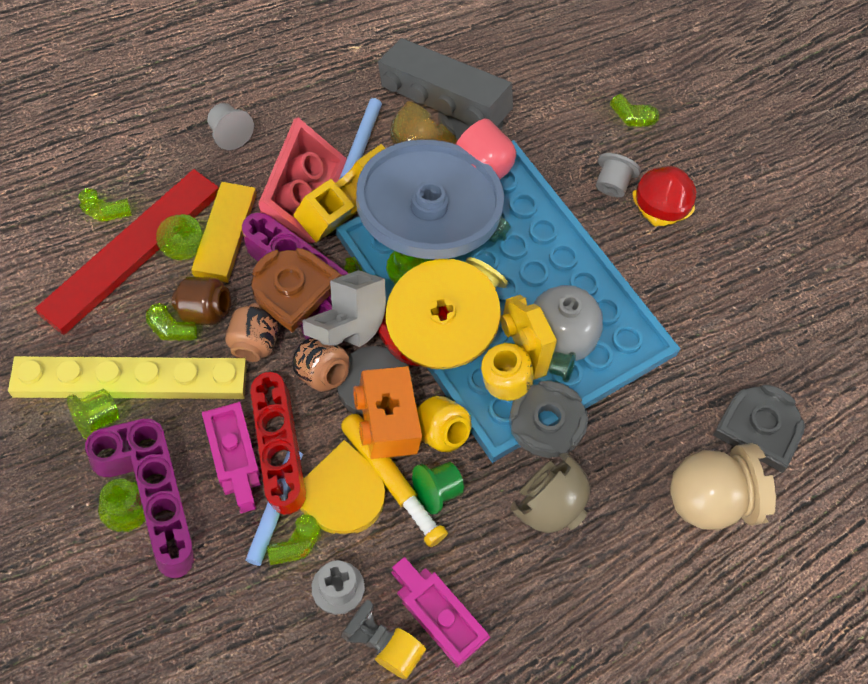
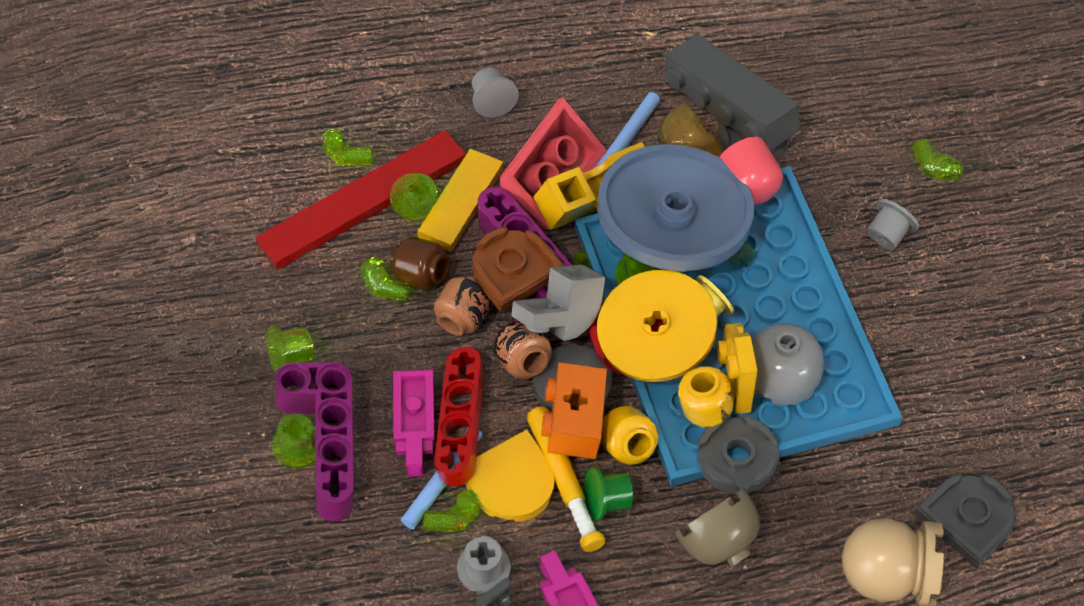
camera: 20 degrees right, 5 degrees down
(128, 377) = (333, 323): light yellow plate -> none
(562, 365) = (768, 405): clear green piece -> none
(665, 195) = (939, 257): red hair -> none

